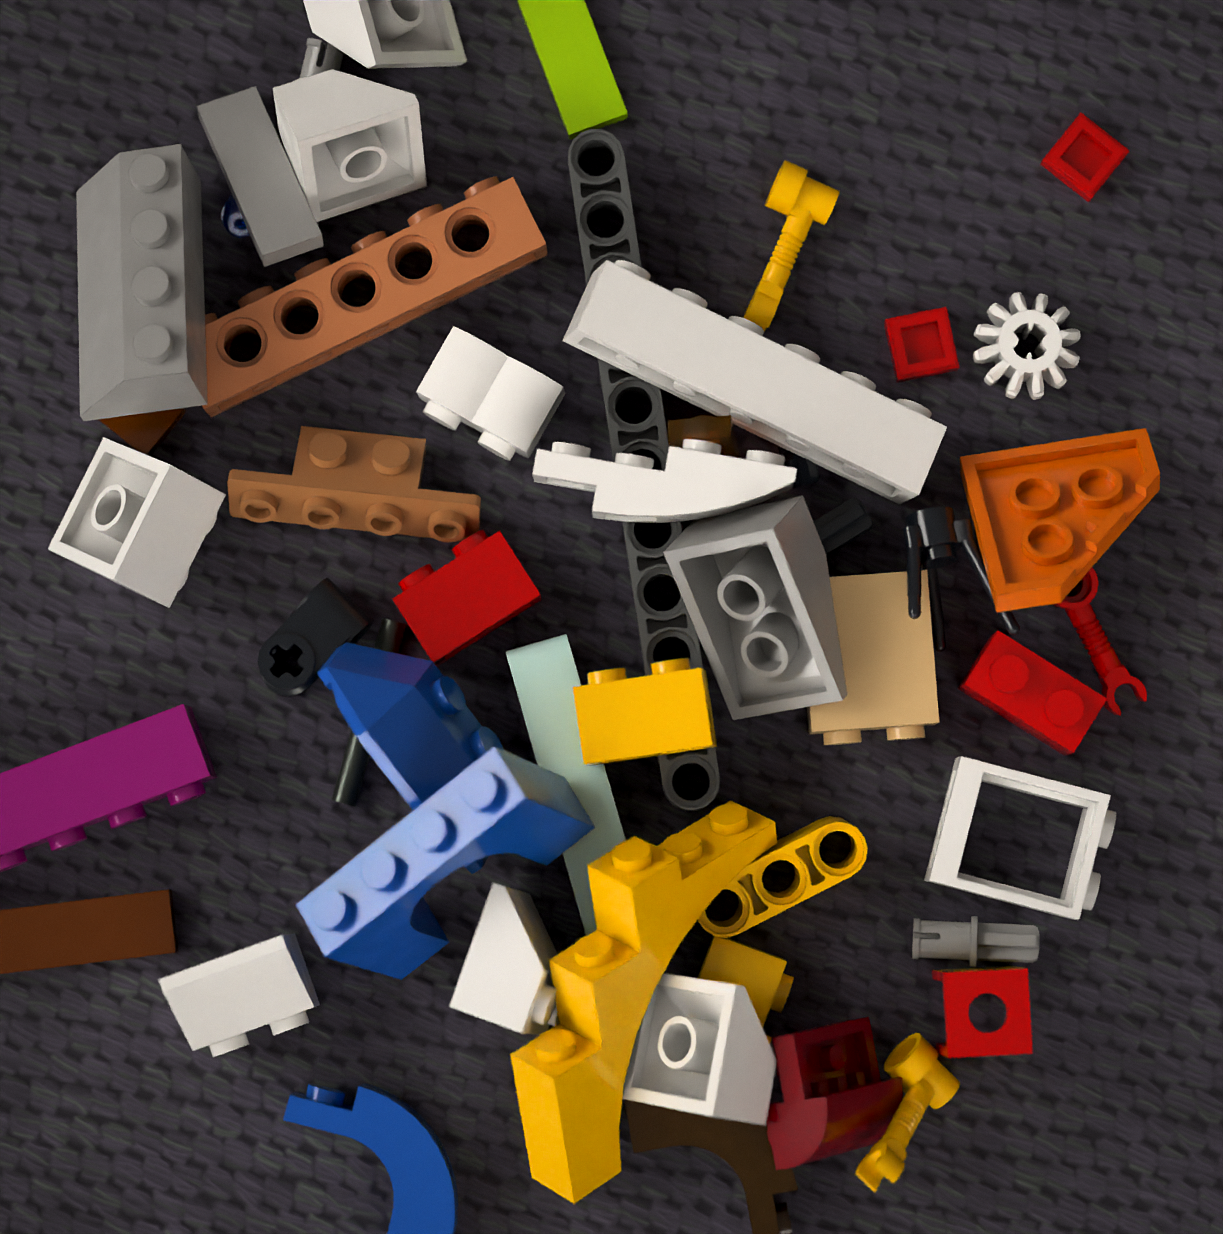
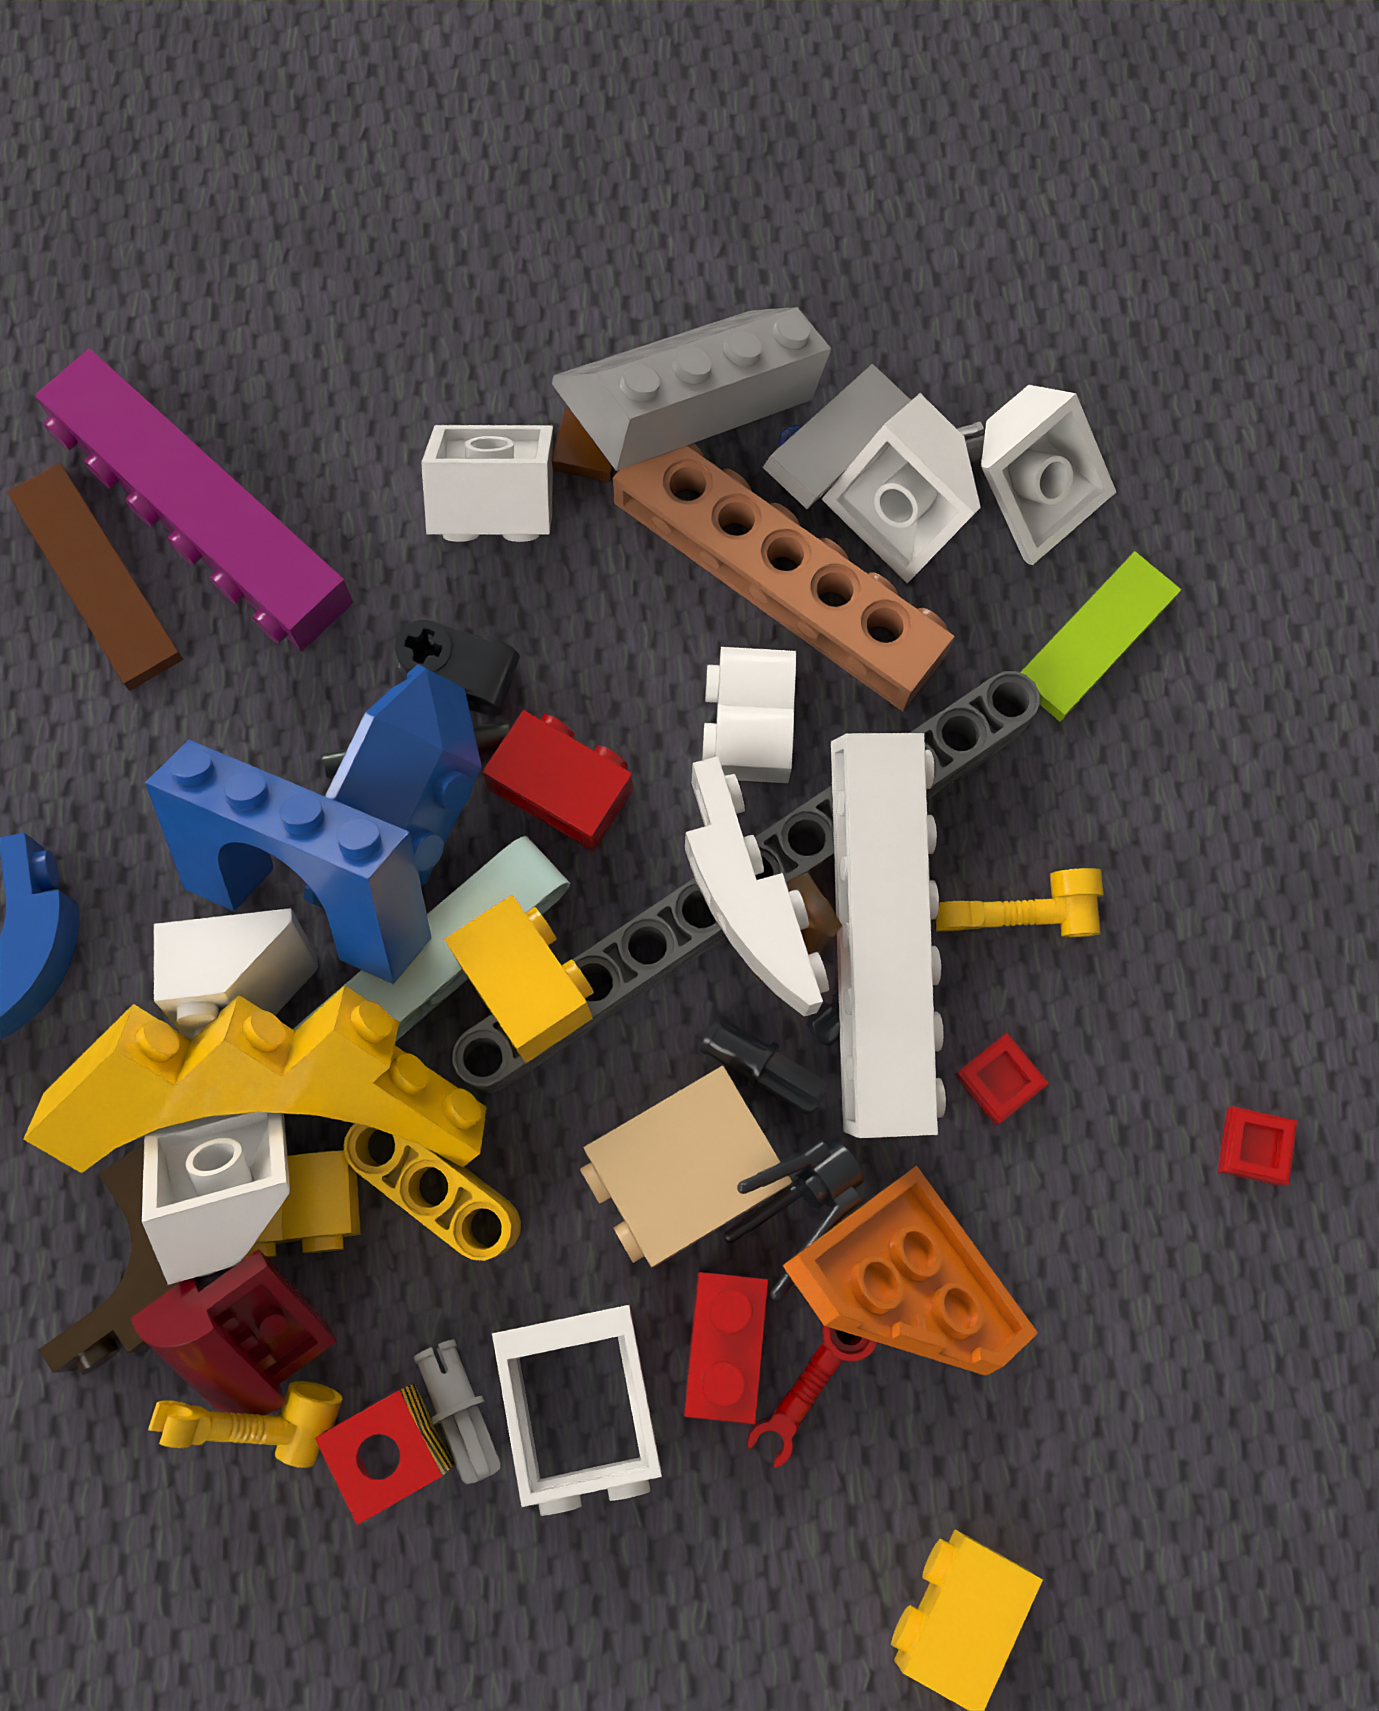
camera: 55 degrees right, 10 degrees down
(241, 993) = (99, 745): white slope -> none
(355, 485) = (613, 640): medium nougat bracket -> none
(762, 606) = (678, 1041): light grey slope -> none
(1004, 339) = (1063, 1202): white gear -> none

